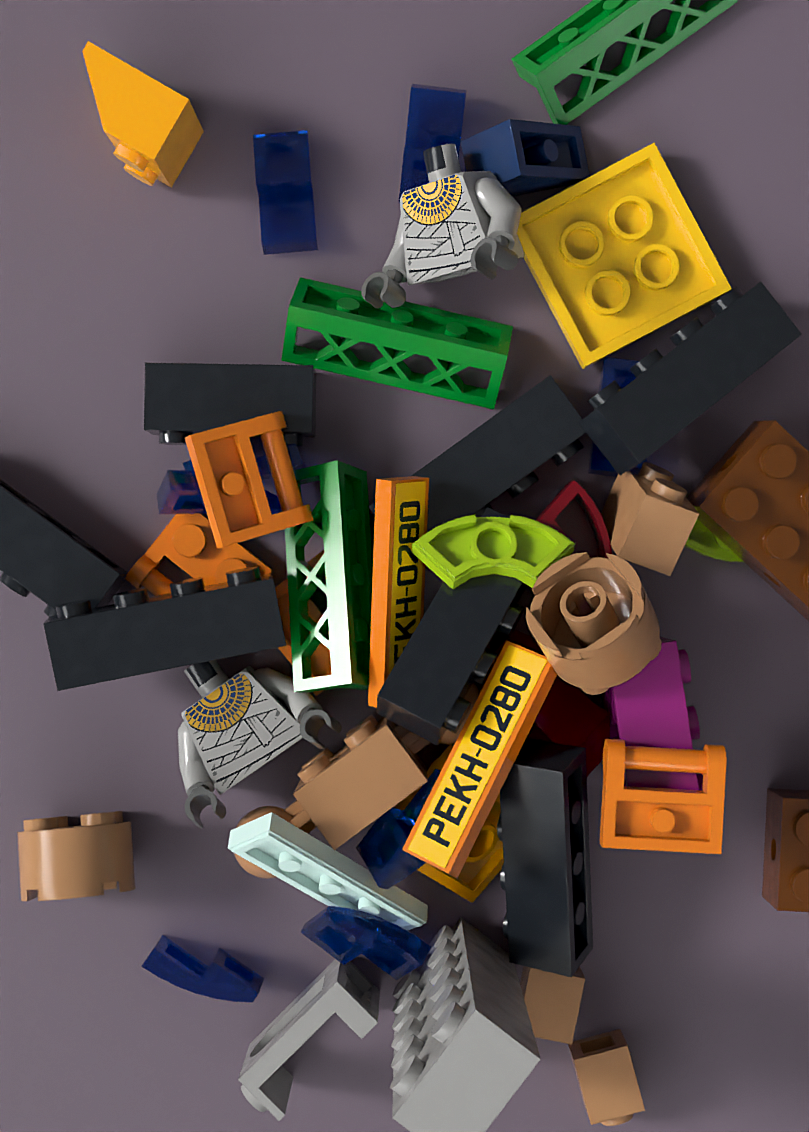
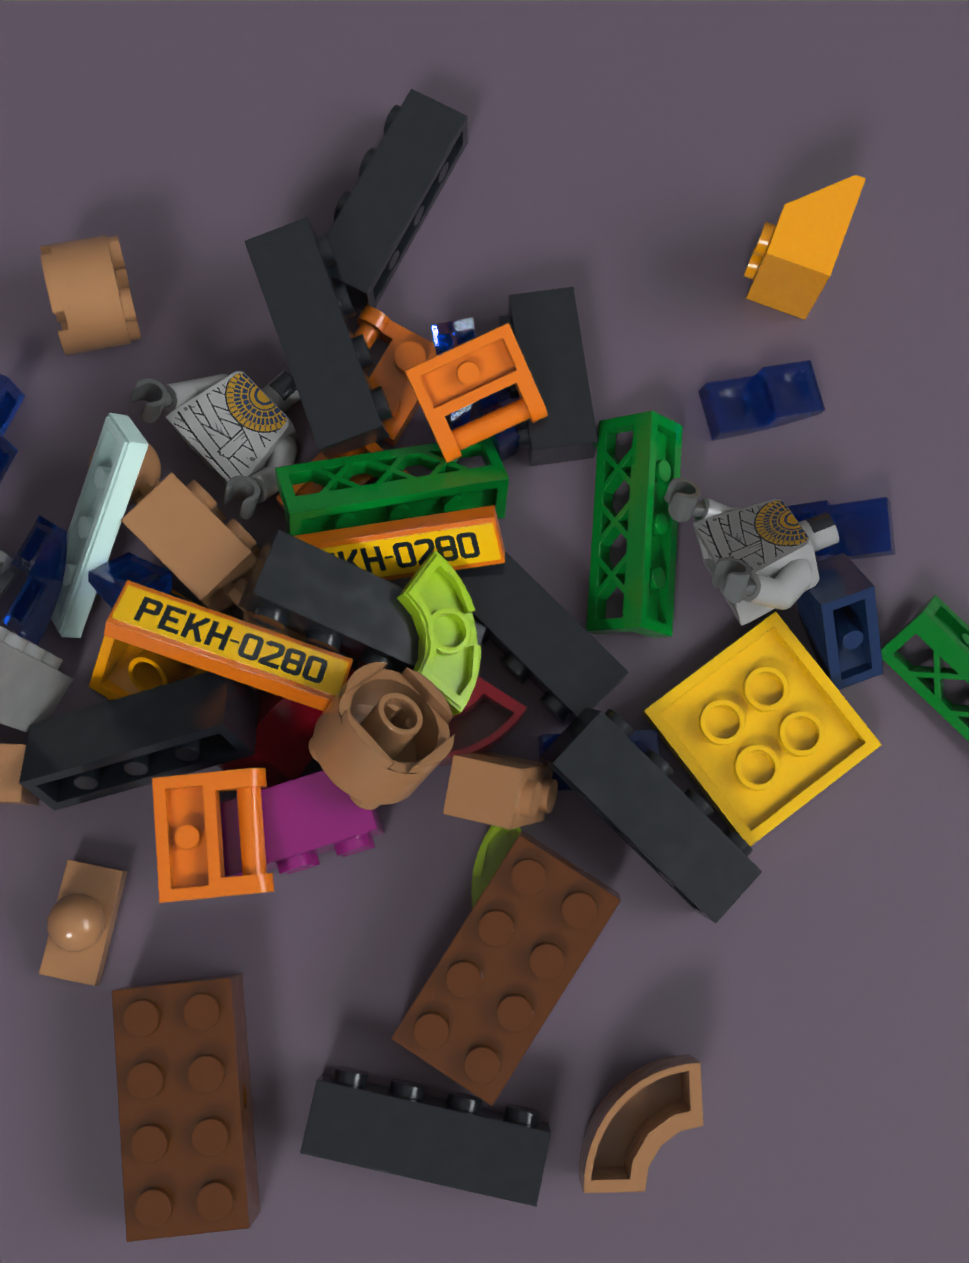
camera: 85 degrees right, 10 degrees down
(698, 932) = (82, 922): none -> medium nougat tile

